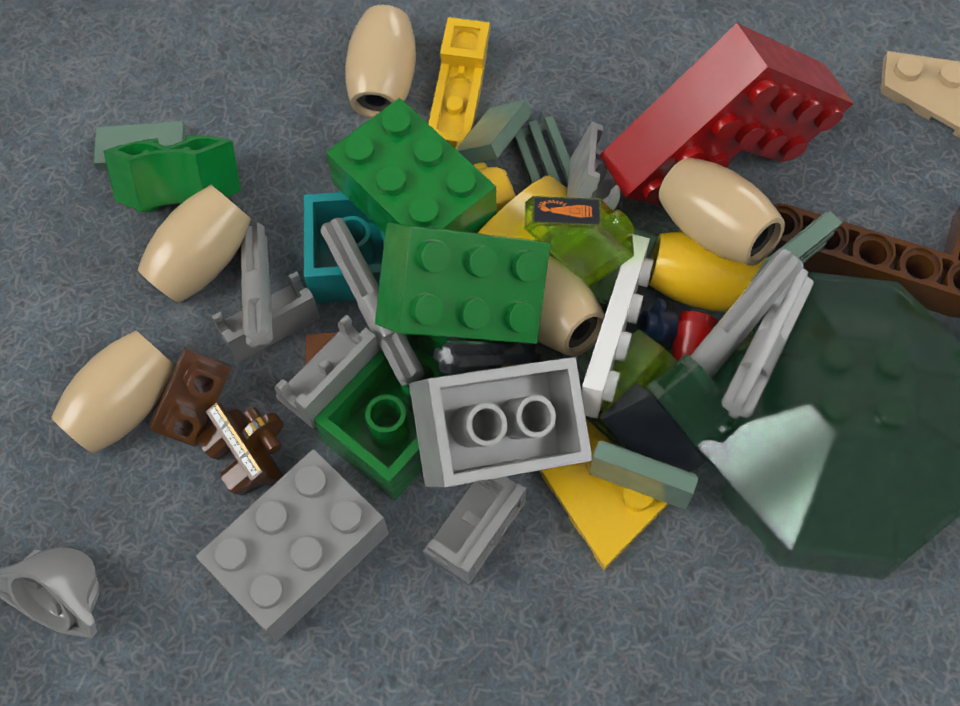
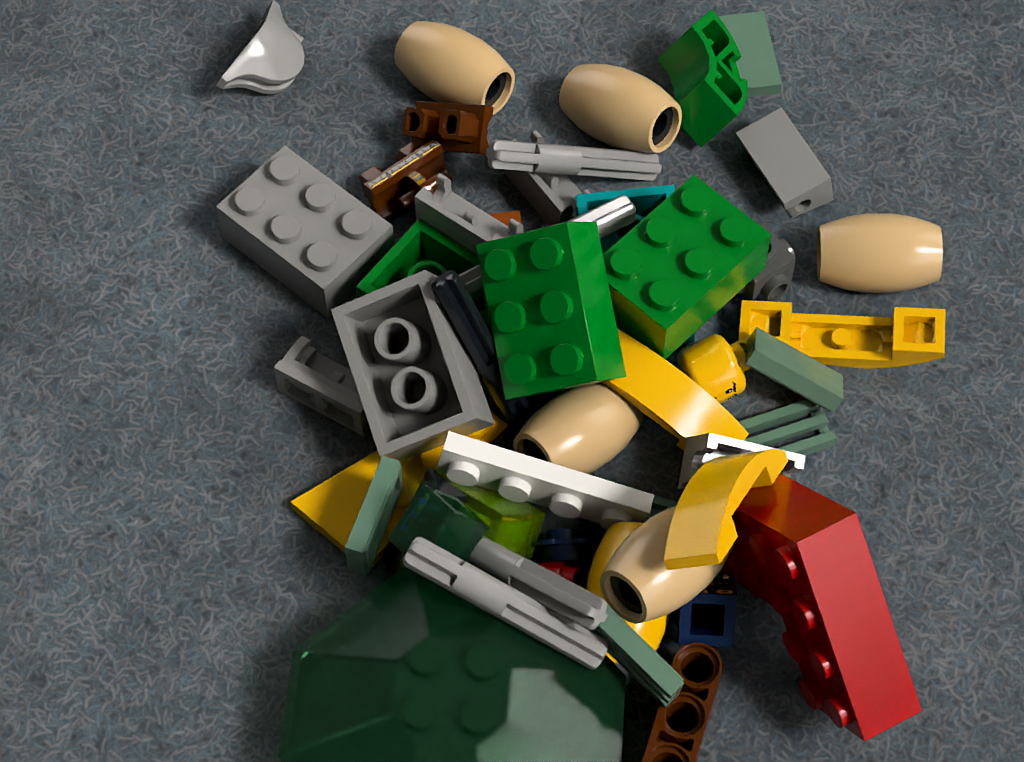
camera: 85 degrees right, 5 degrees down
(272, 120) = (786, 163): none -> light grey hinge
(582, 234) = (640, 433): clear neon green slope -> none
(690, 148) = (702, 519): none -> yellow slope

